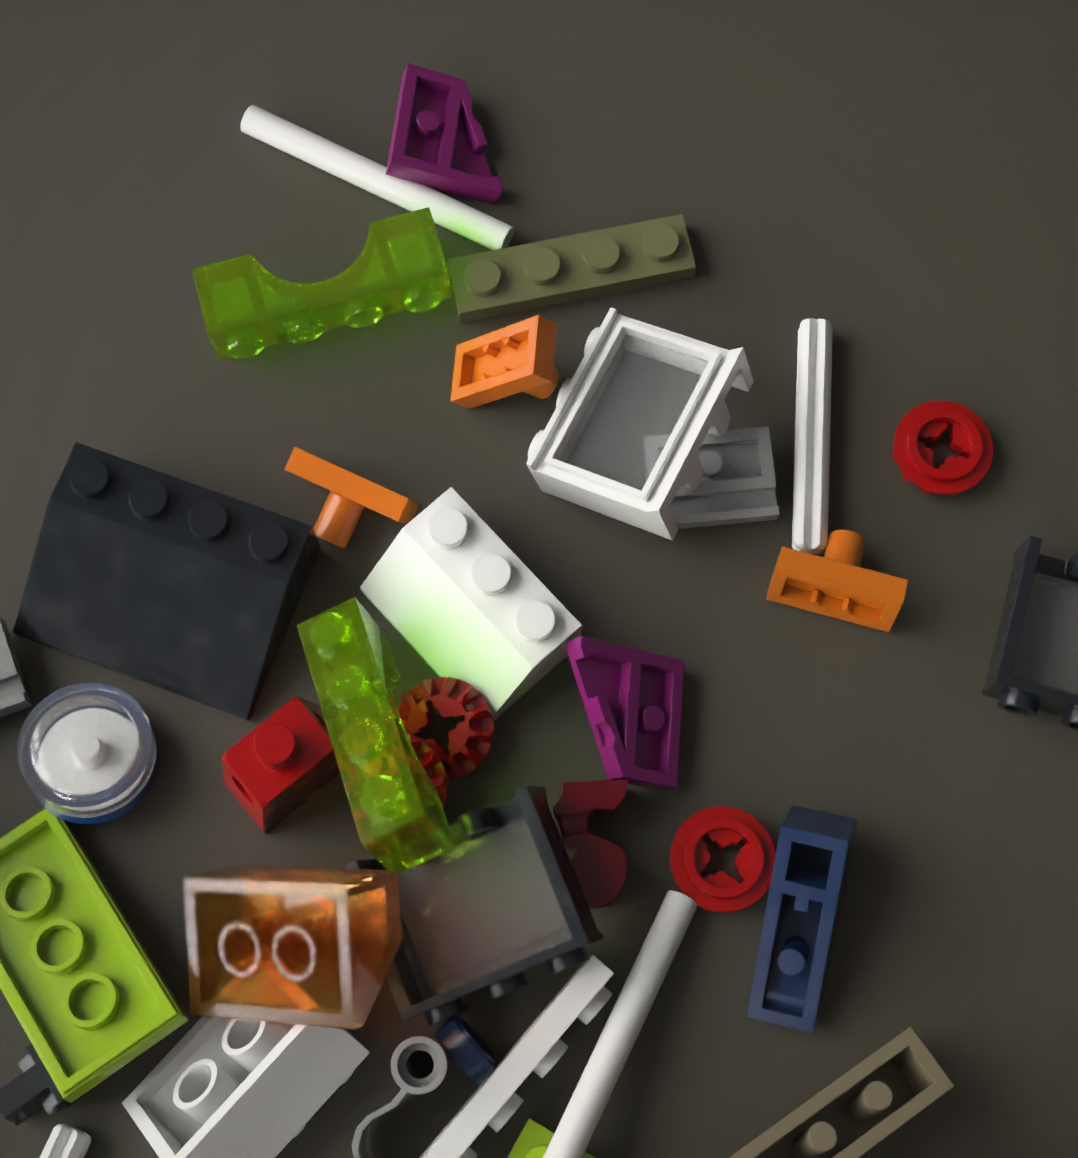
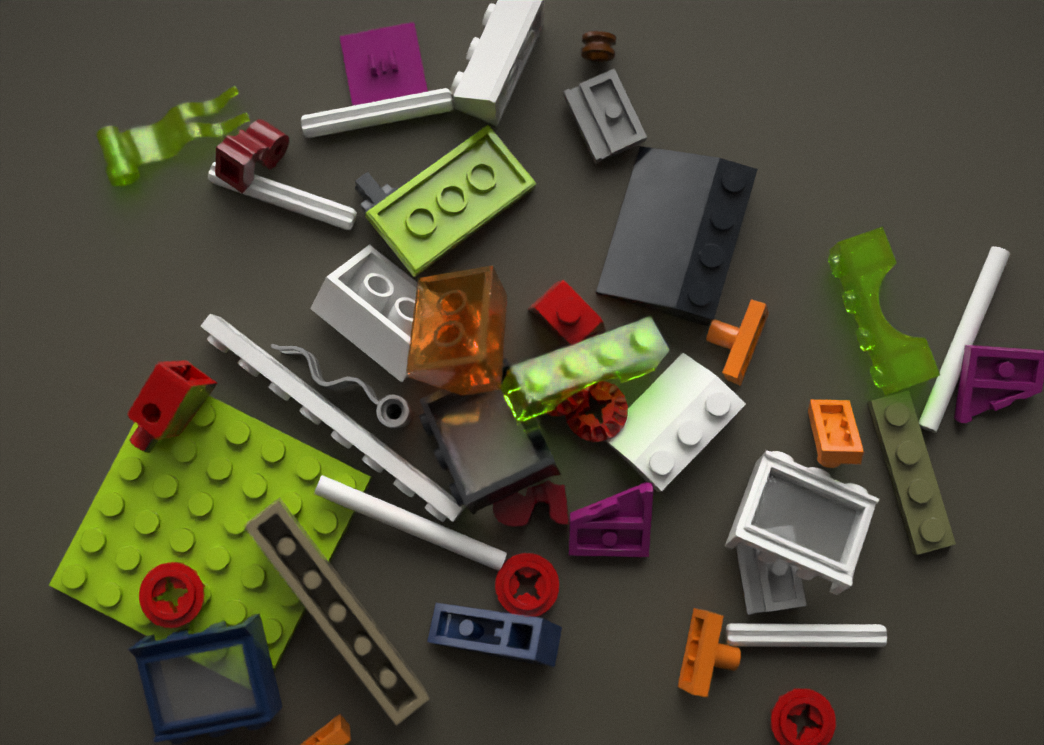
camera: 90 degrees right, 10 degrees up
(88, 753) = (566, 201): clear piece -> none
(467, 1048) = (407, 438): dark blue tile -> none

